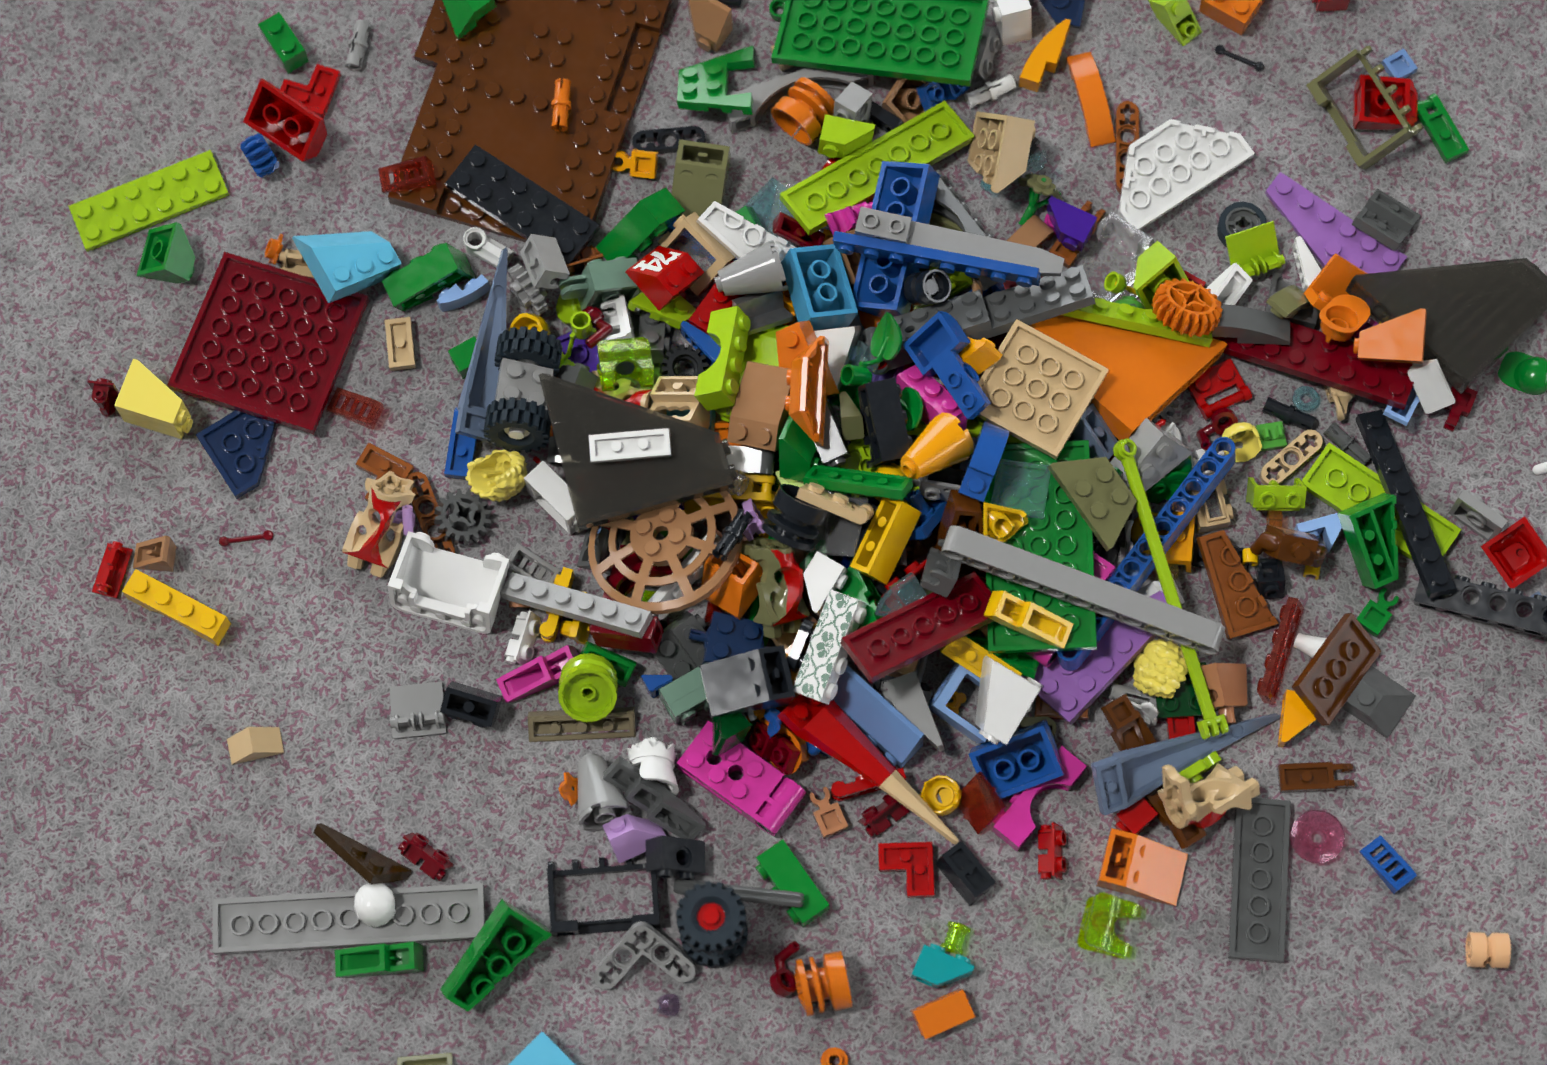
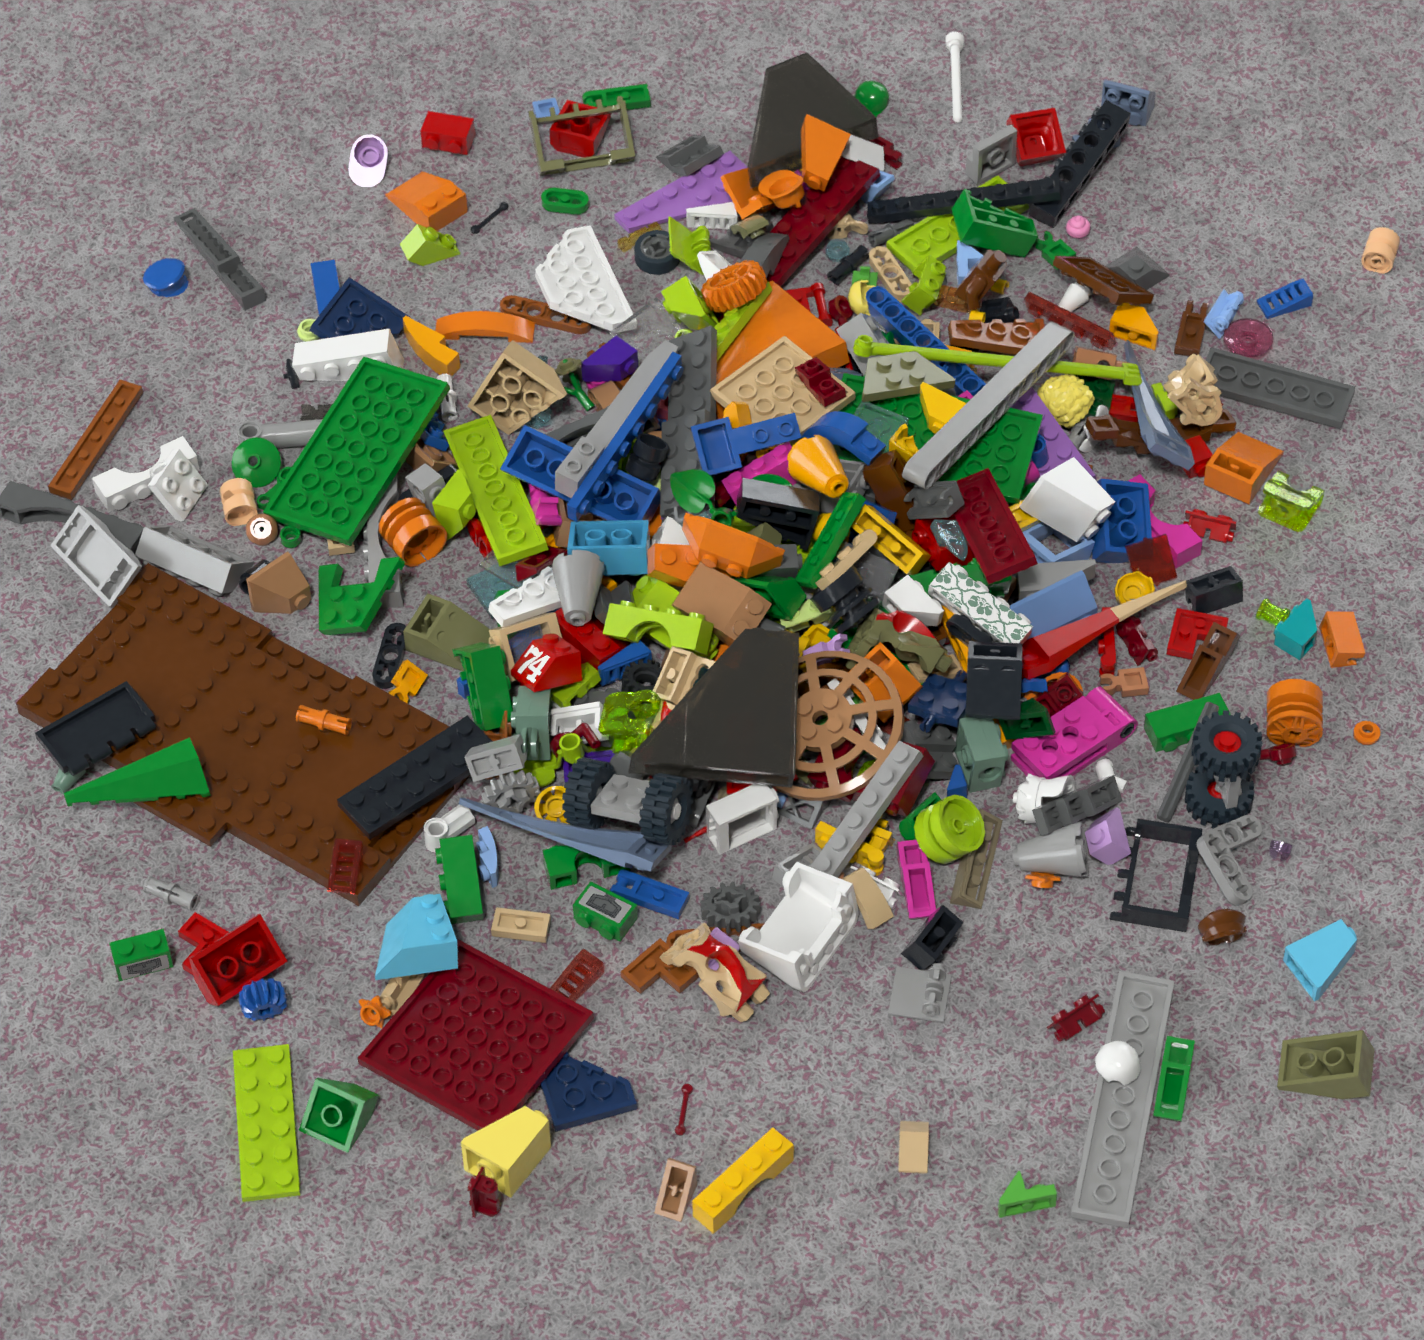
camera: 75 degrees left, 20 degrees down
(112, 570) = (677, 1239): red hinge -> none
(216, 848) = (1021, 1200): none -> bright green slope
(365, 861) = (1059, 1071): dark brown wing -> none
(429, 410) = (605, 912): none -> green brick
(494, 952) = (1198, 971): green wedge -> none
(497, 475) = (700, 858): light yellow hair -> none
(501, 634) = (869, 898): none -> tan slope
(547, 969) = (1222, 927): none -> reddish brown piece
(630, 445) = (734, 699): white plate -> none
(675, 857) = (1140, 801): black brick -> none
(712, 819) = (1105, 769): none -> white arm
(732, 535) = (846, 653): black pin -> none
(873, 887) = (1208, 661): none -> reddish brown slope
(1028, 619) = (1002, 451): yellow slope -> none
(1054, 419) = (818, 381): none -> dark red slope
(1061, 542) = (938, 406): none -> yellow slope
(1273, 214) = (625, 242): none -> clear yellow axle
(1284, 121) = (567, 201): none -> green plate
(1345, 803) = (1223, 312): none -> light blue hinge
(1419, 629) = (1078, 227): none -> bright pink plate

